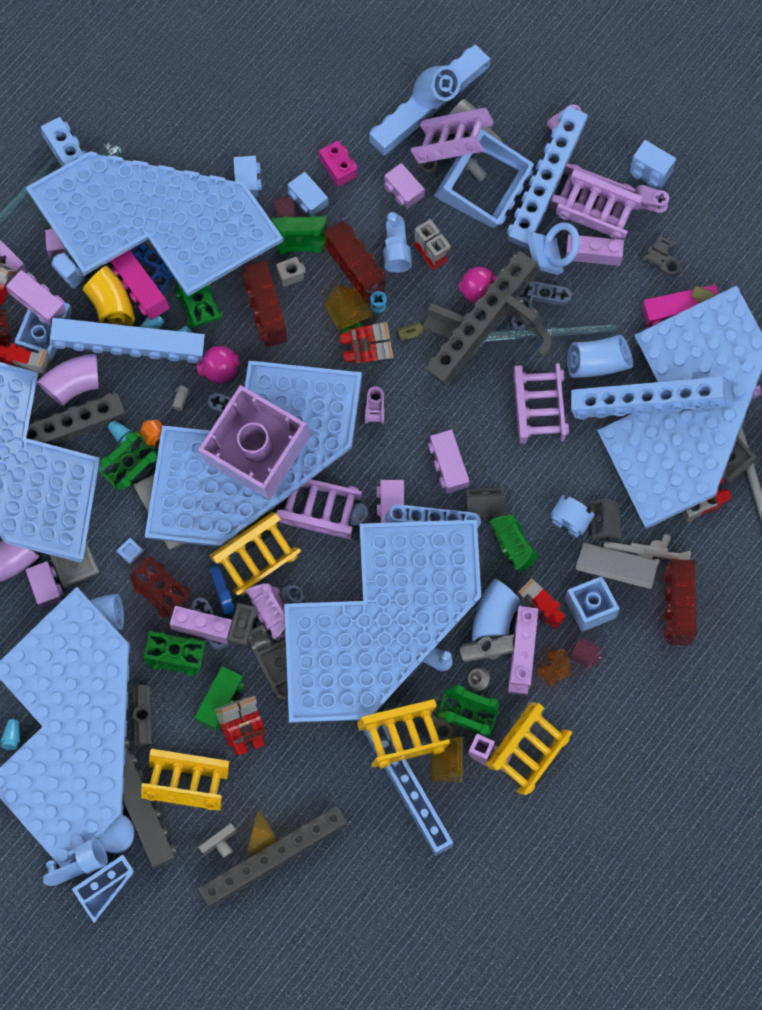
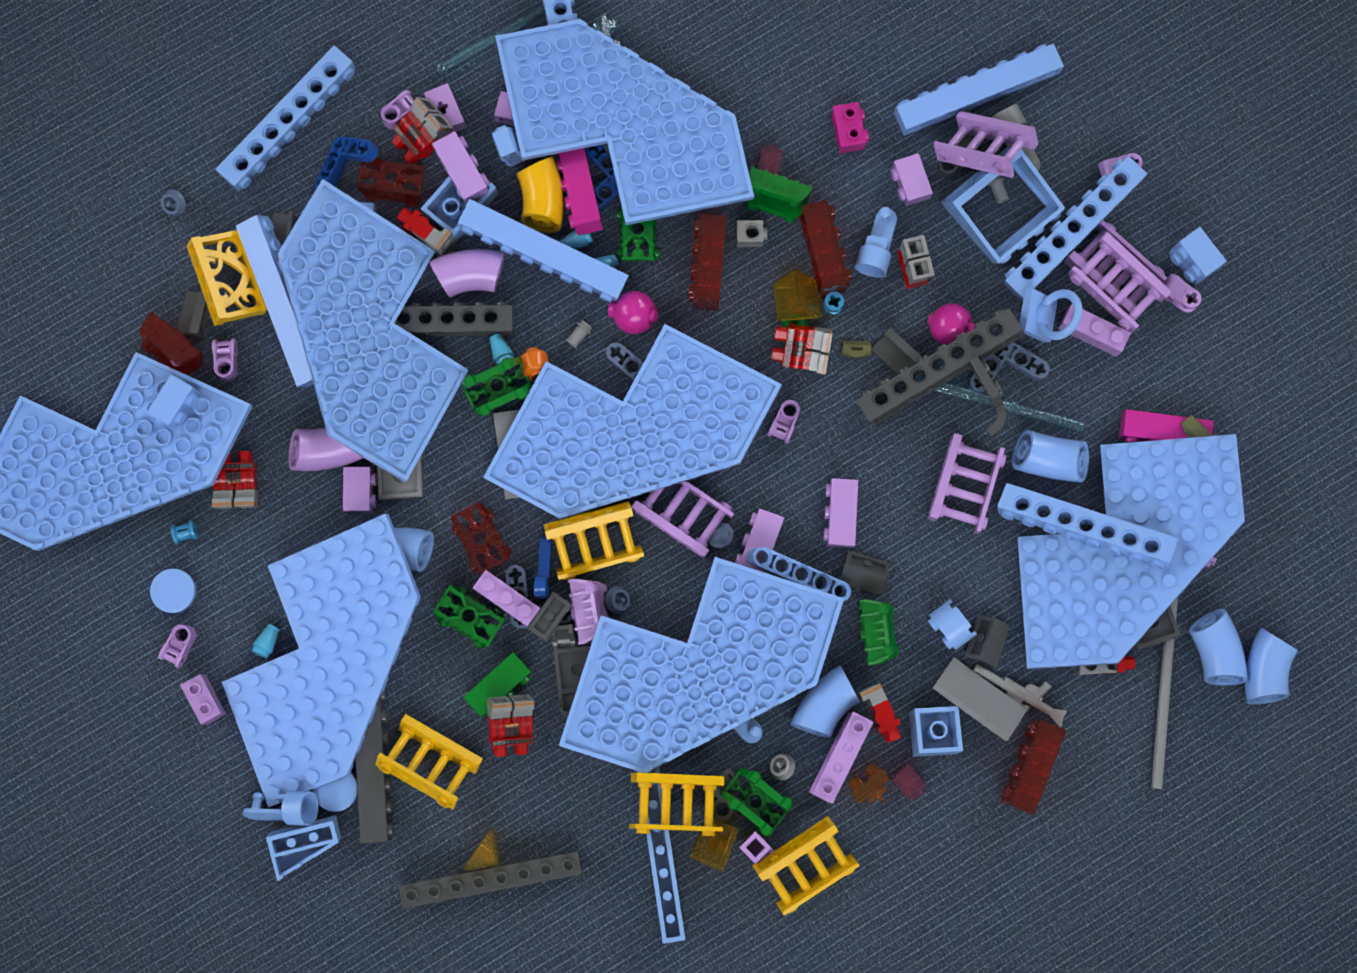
camera: 20 degrees right, 10 degrees up
(130, 551) = (463, 485): light blue tile -> none
(142, 728) = (404, 687): dark grey piece -> none
(219, 842) = (441, 841): light grey tile -> none
(246, 171) = (743, 104): light blue brick -> none
(255, 442) = (633, 425): lavender brick -> none
(307, 195) = (801, 152): light blue brick -> none
(436, 86) = (990, 81): light blue brick -> none
(481, 650) = (795, 737): light grey piece -> none
(659, 254) = (1162, 363): dark grey piece -> none

